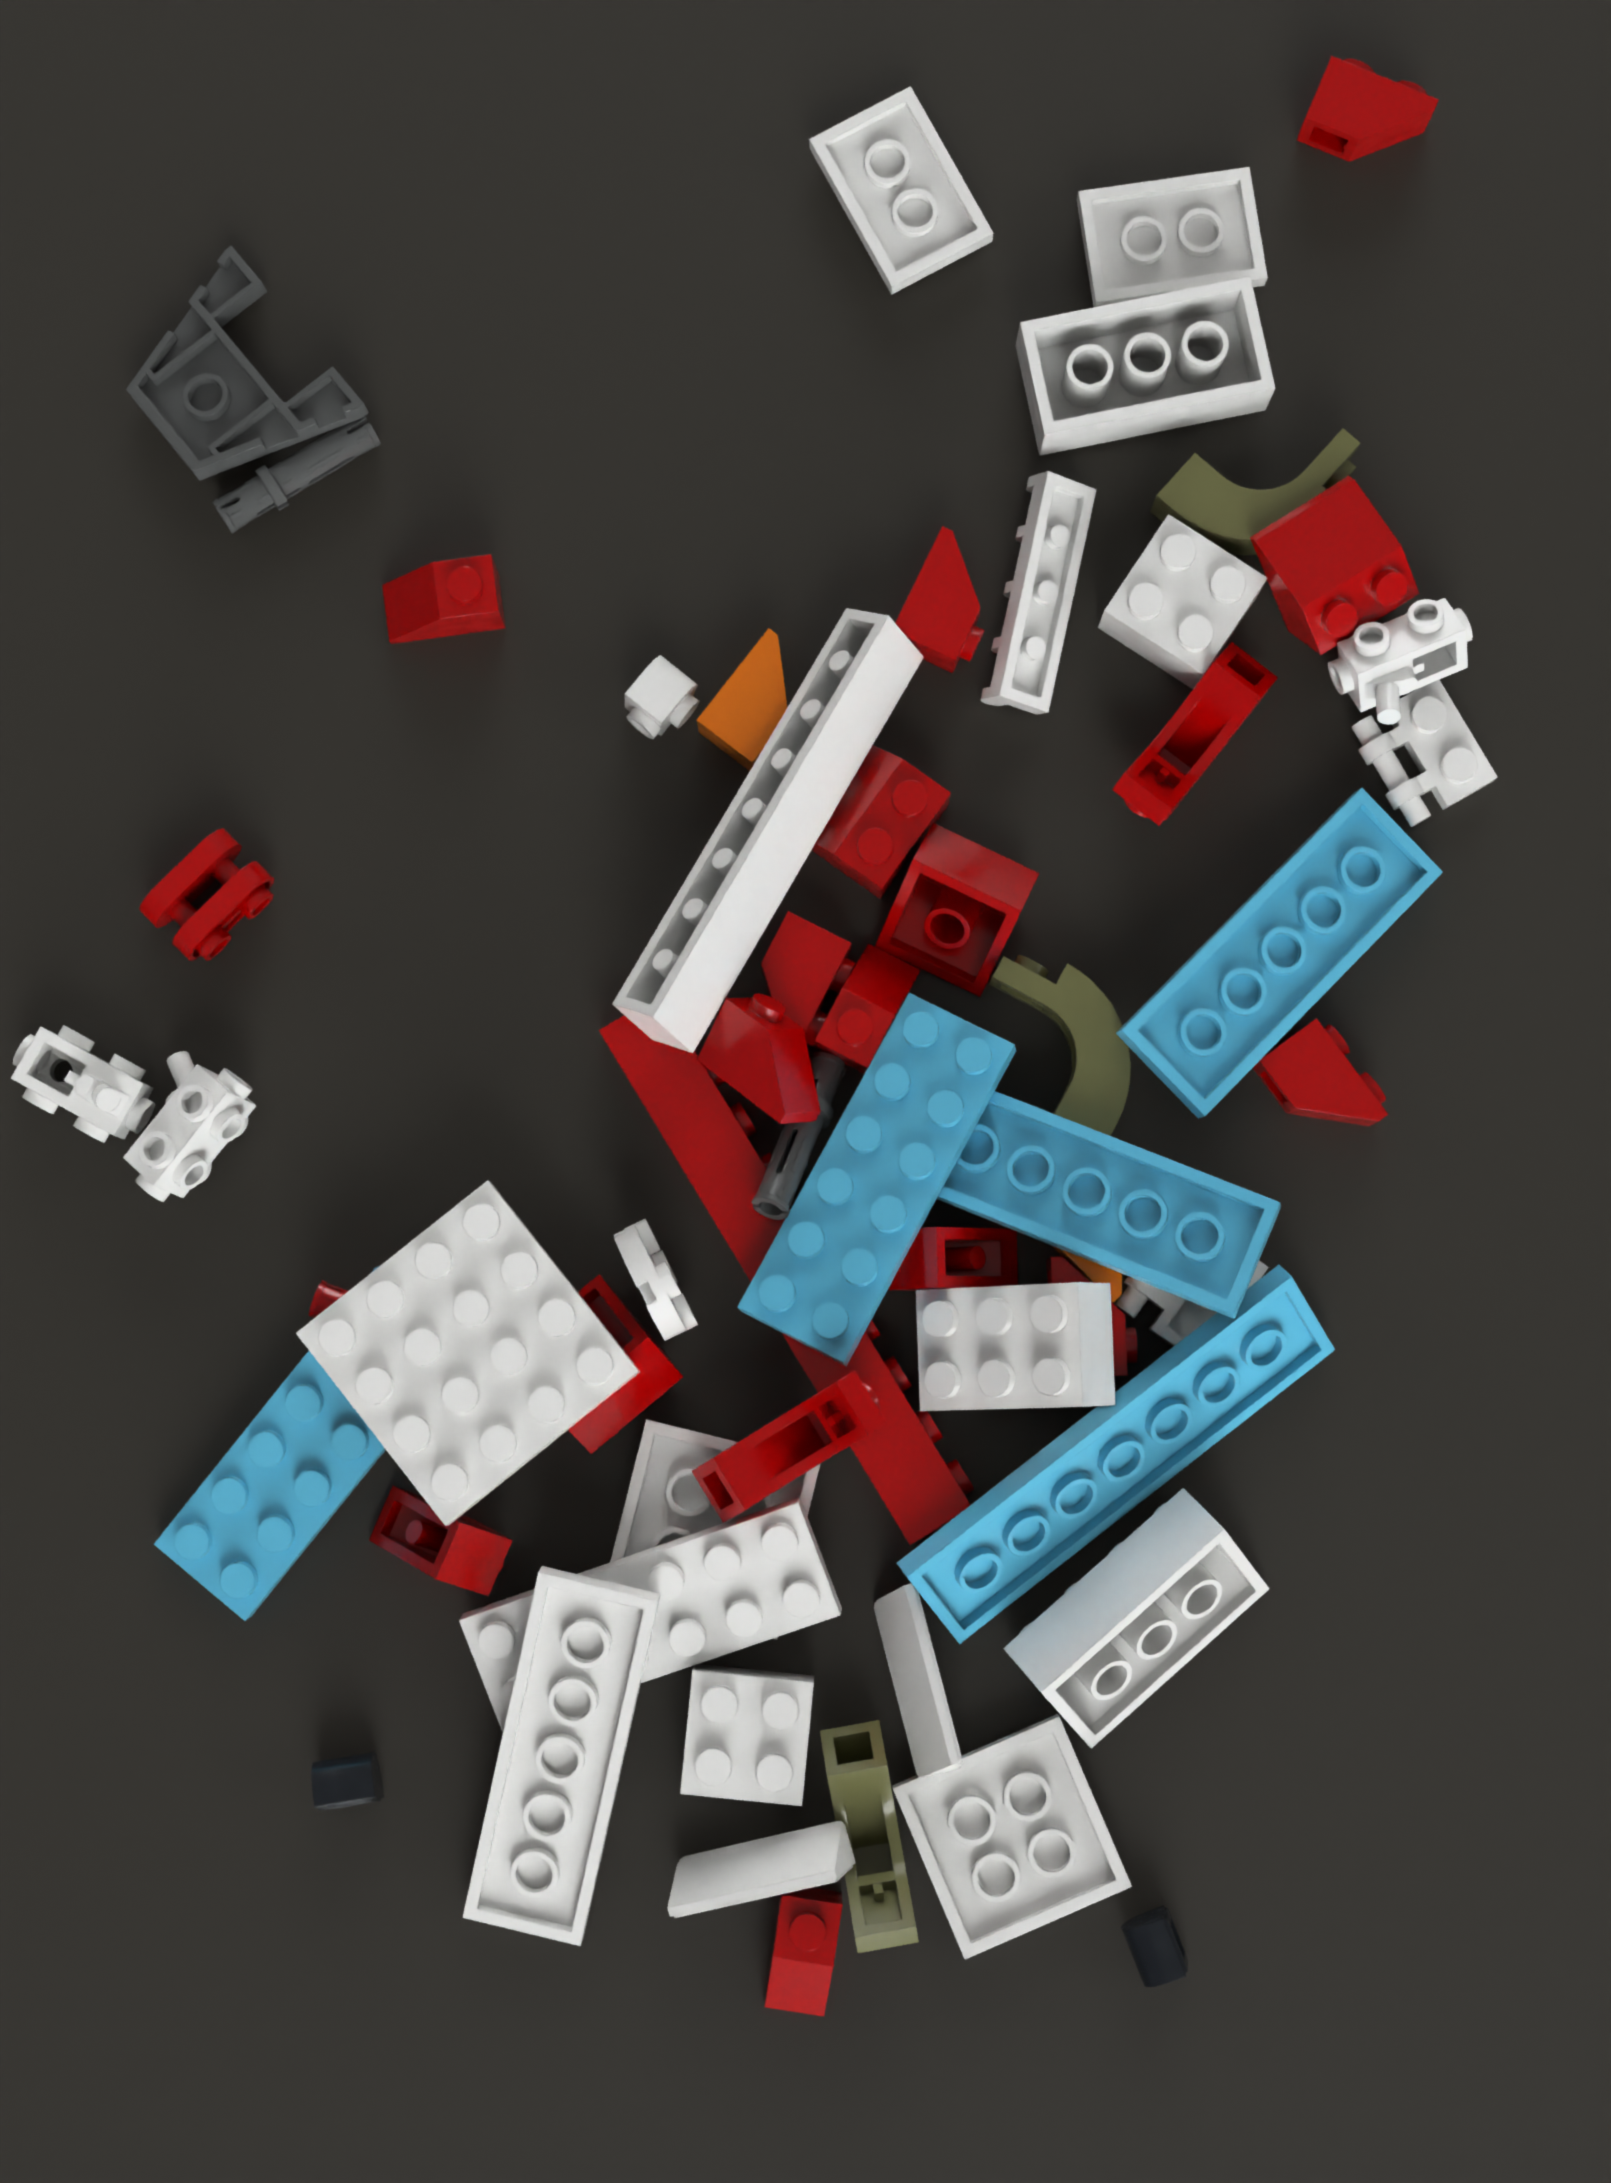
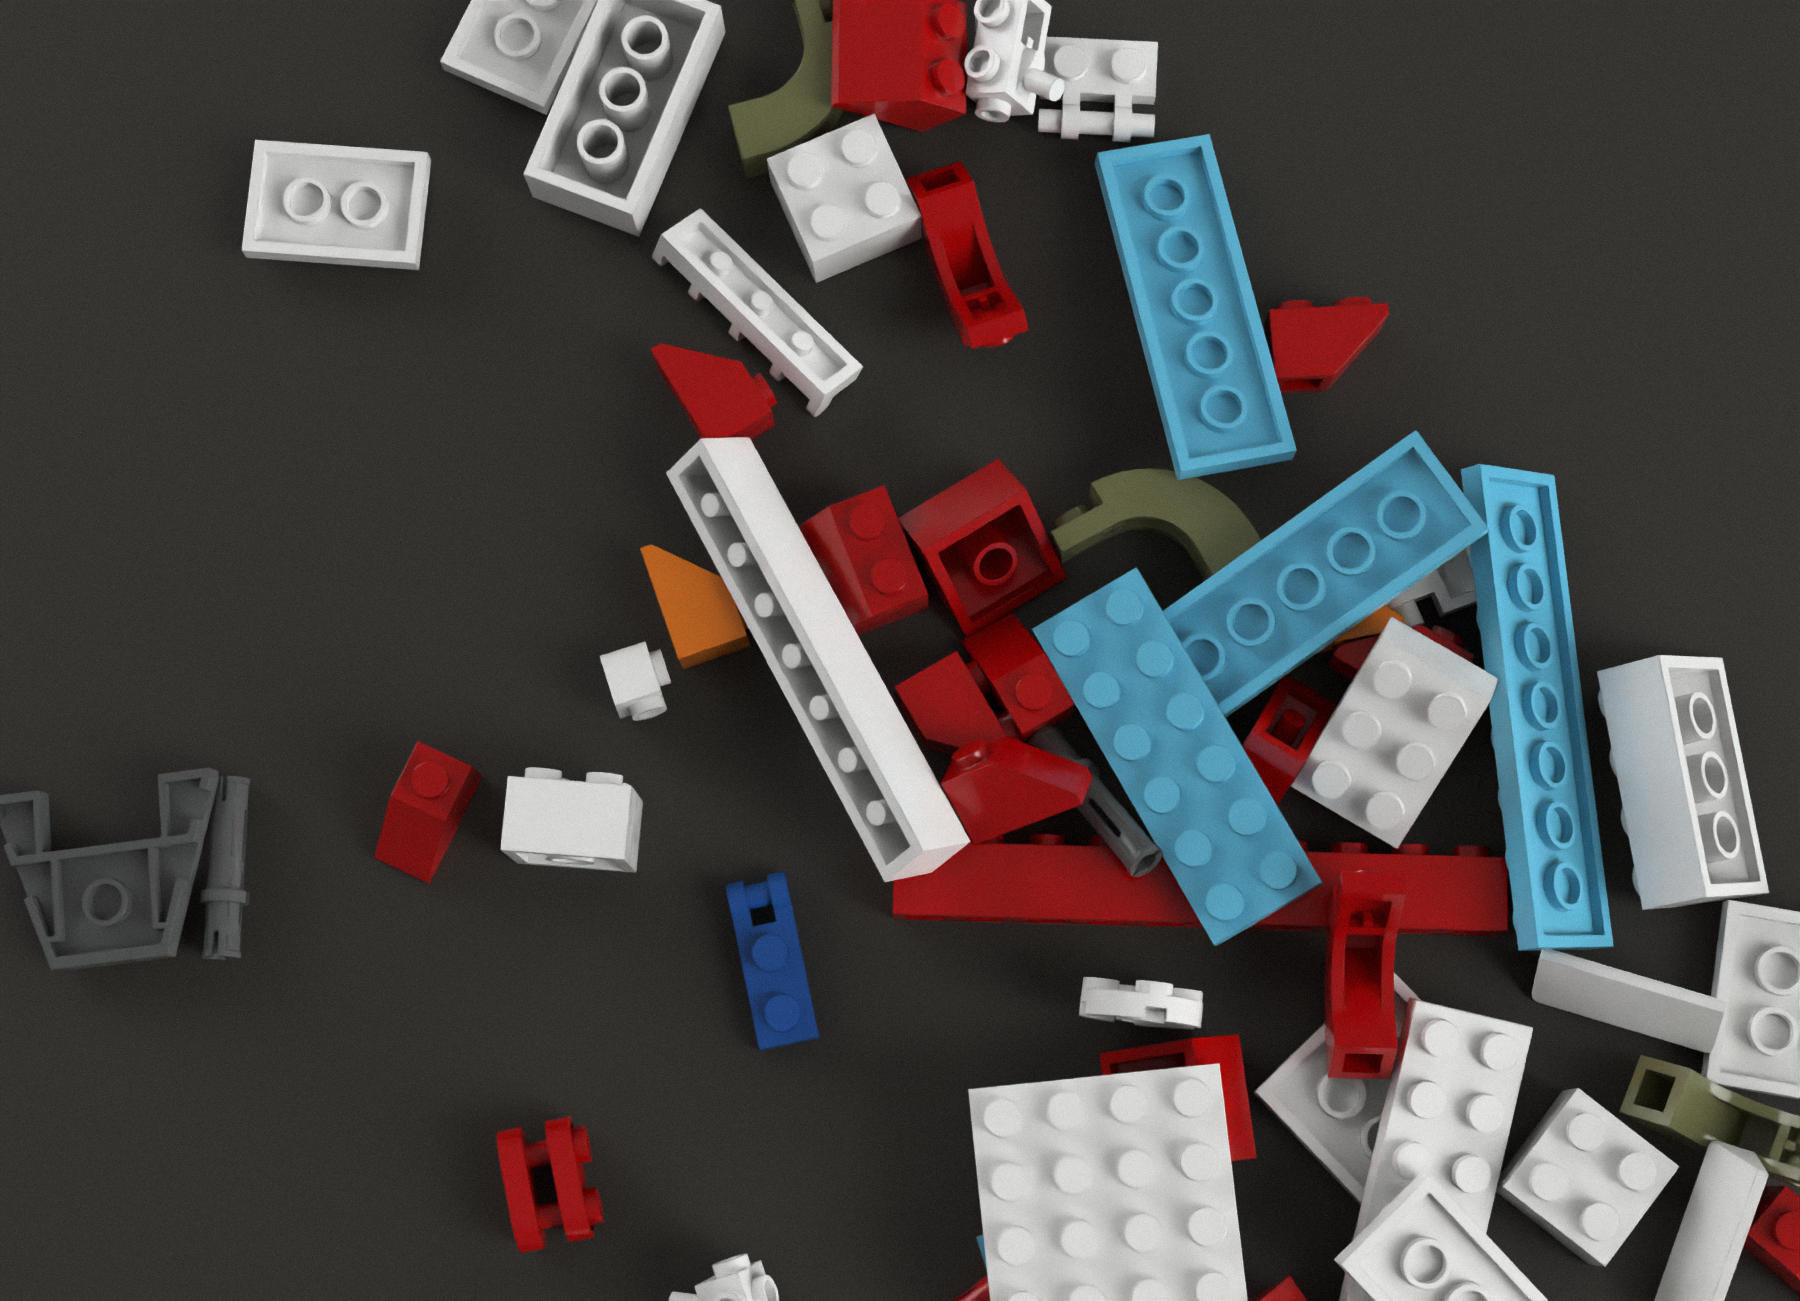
camera: 55 degrees left, 5 degrees down
(501, 714) = (572, 821): none -> white brick
(502, 961) = (773, 964): none -> blue plate

